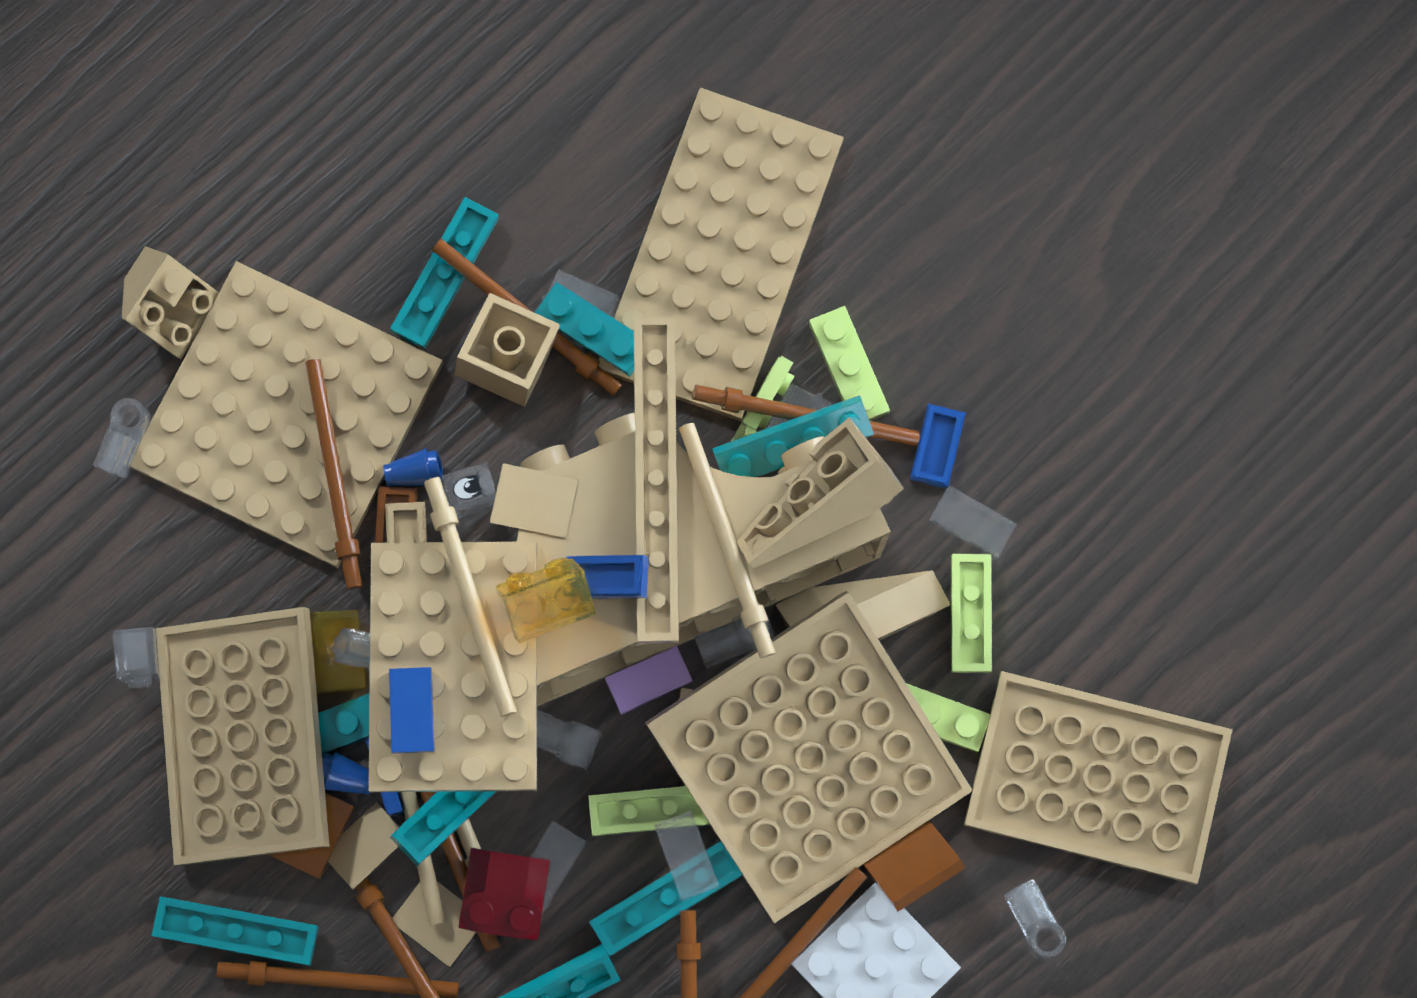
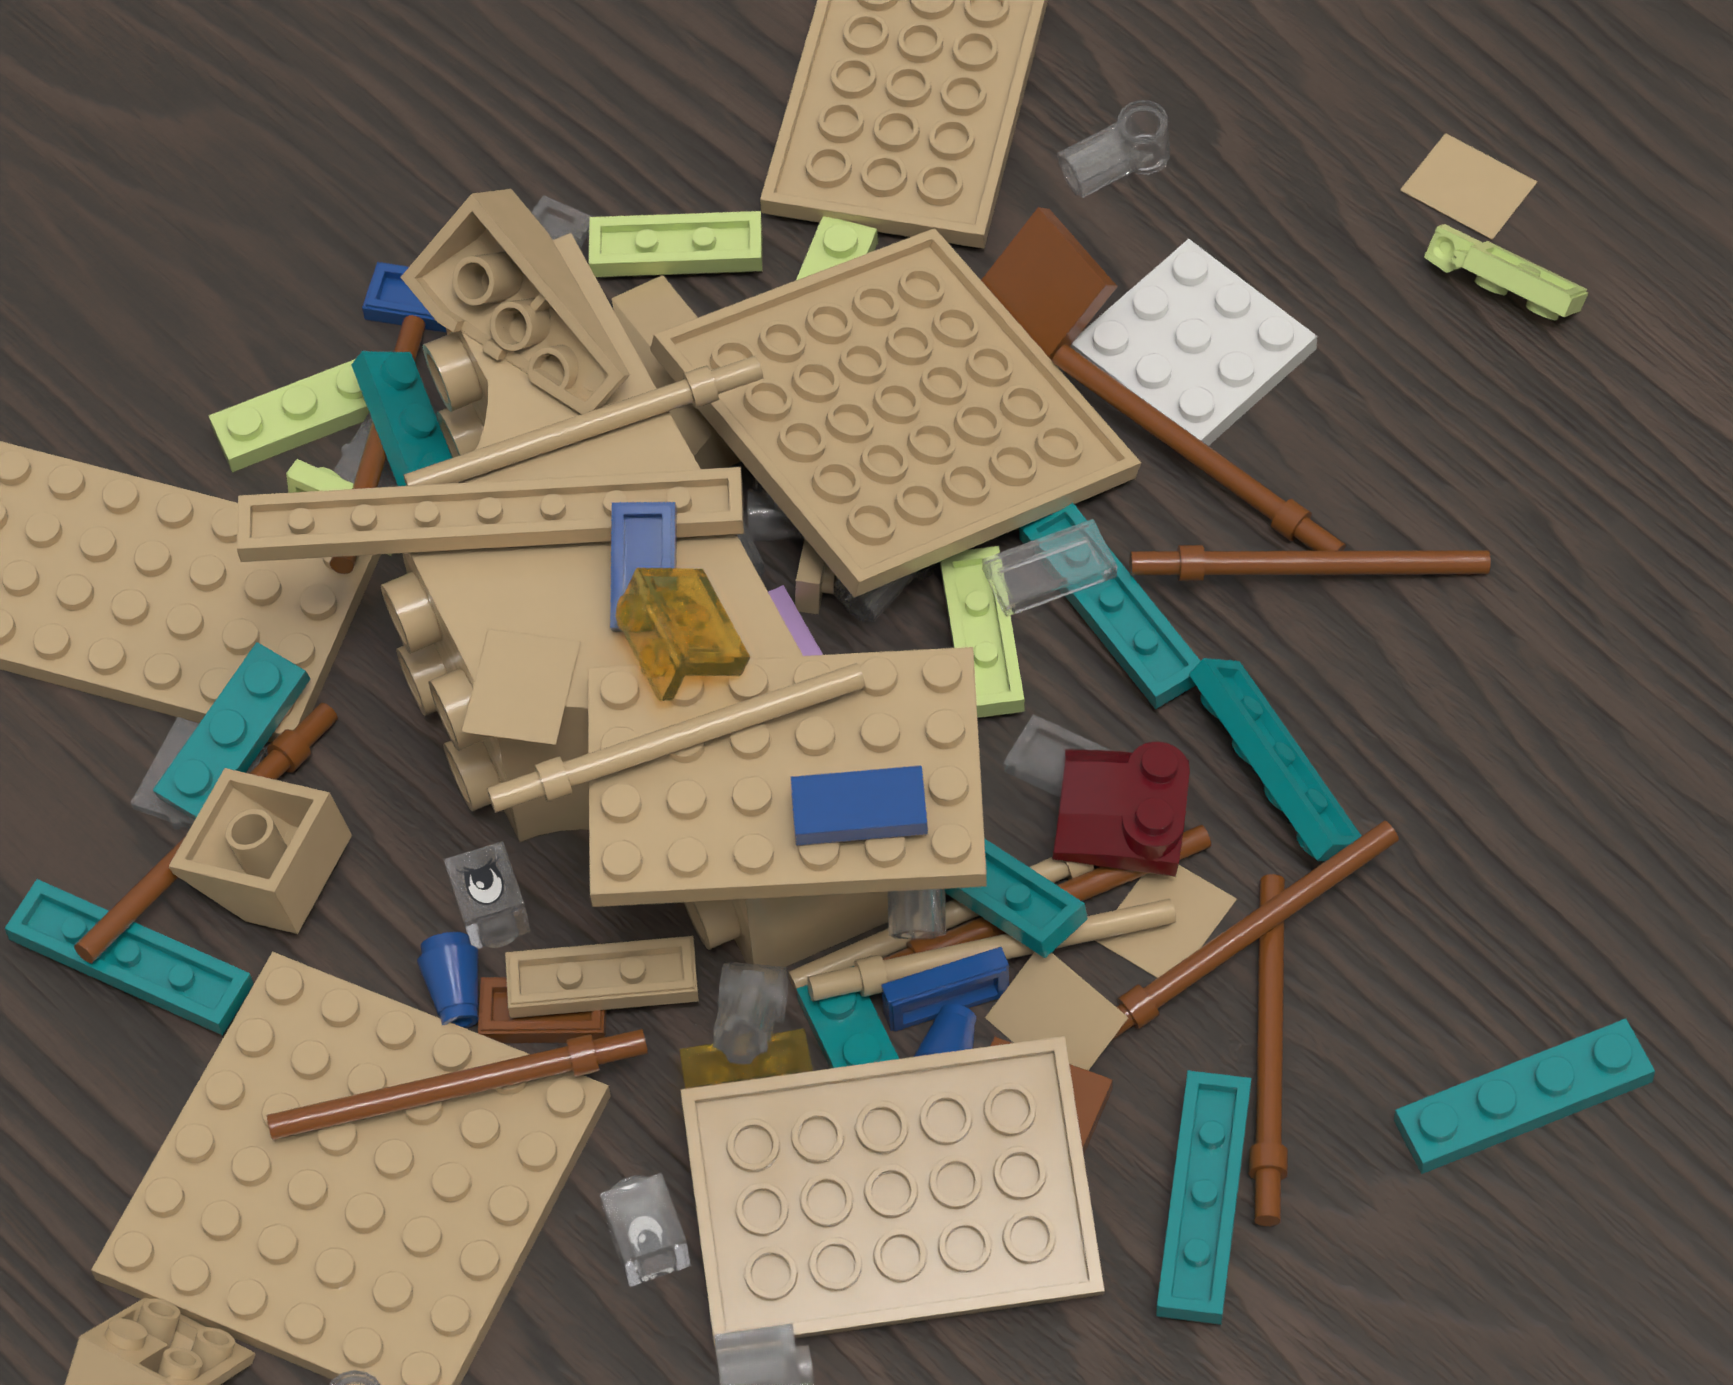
camera: 85 degrees left, 20 degrees down
(237, 587) = (645, 1228): none -> clear brick

